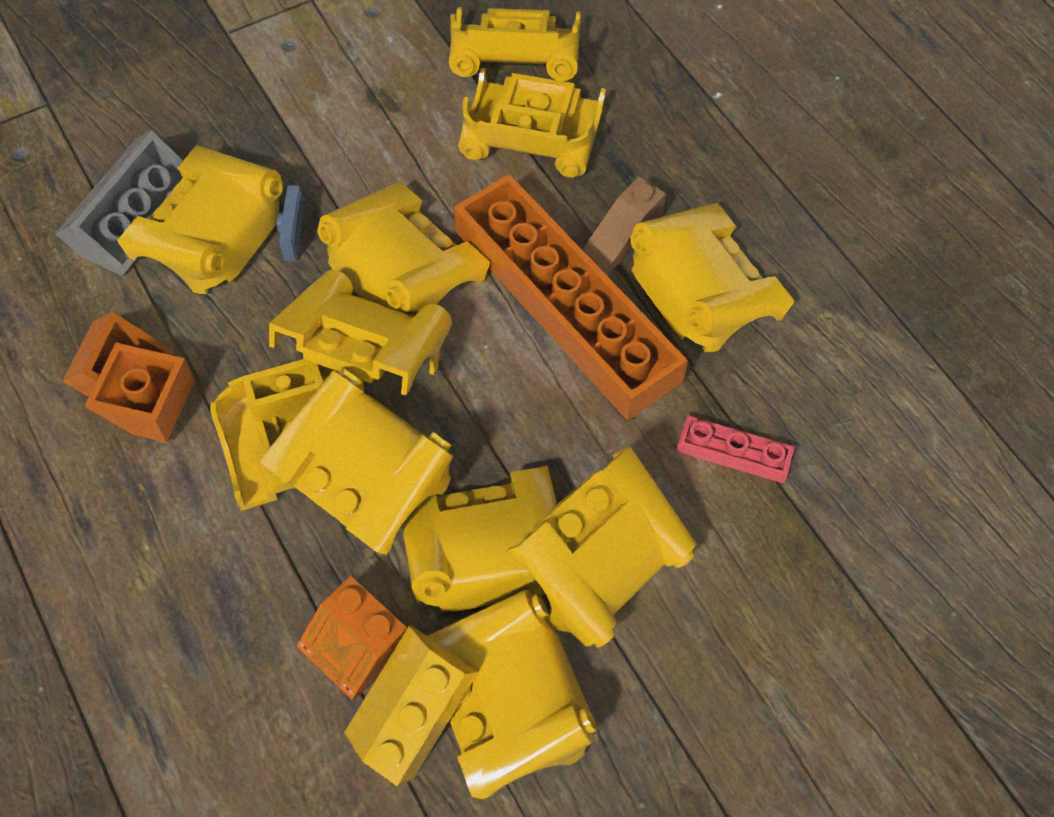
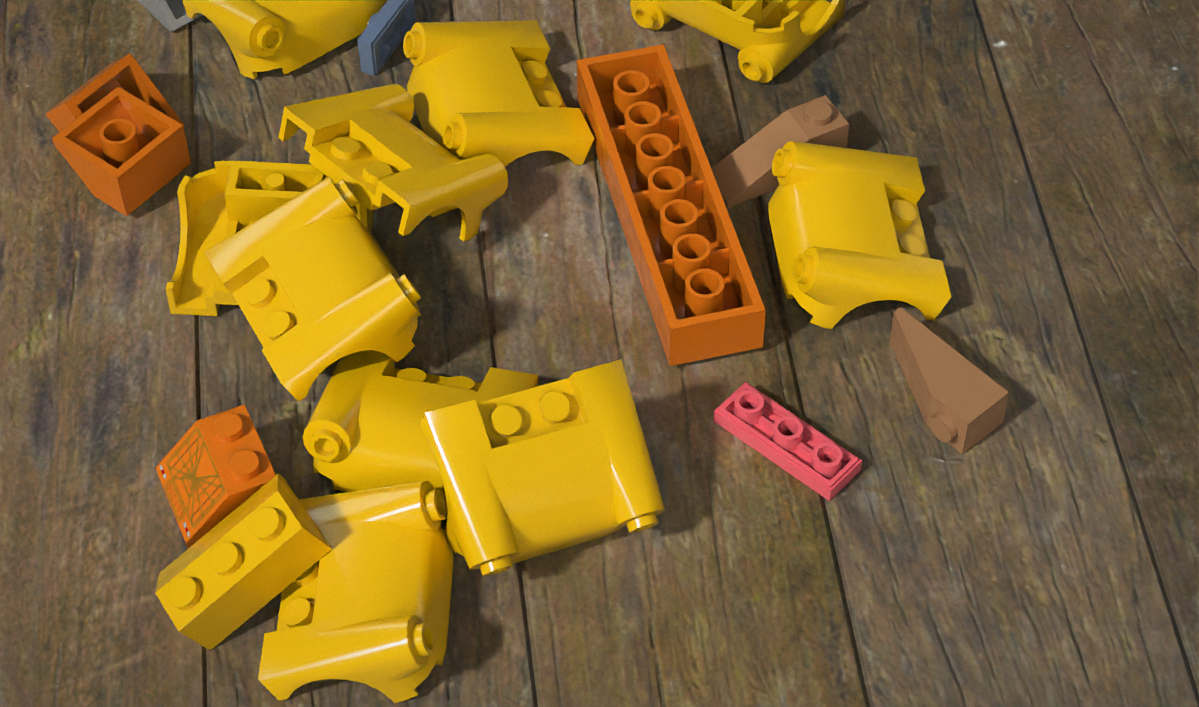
camera: 25 degrees right, 10 degrees down
(822, 370) = (950, 391): none -> medium nougat slope

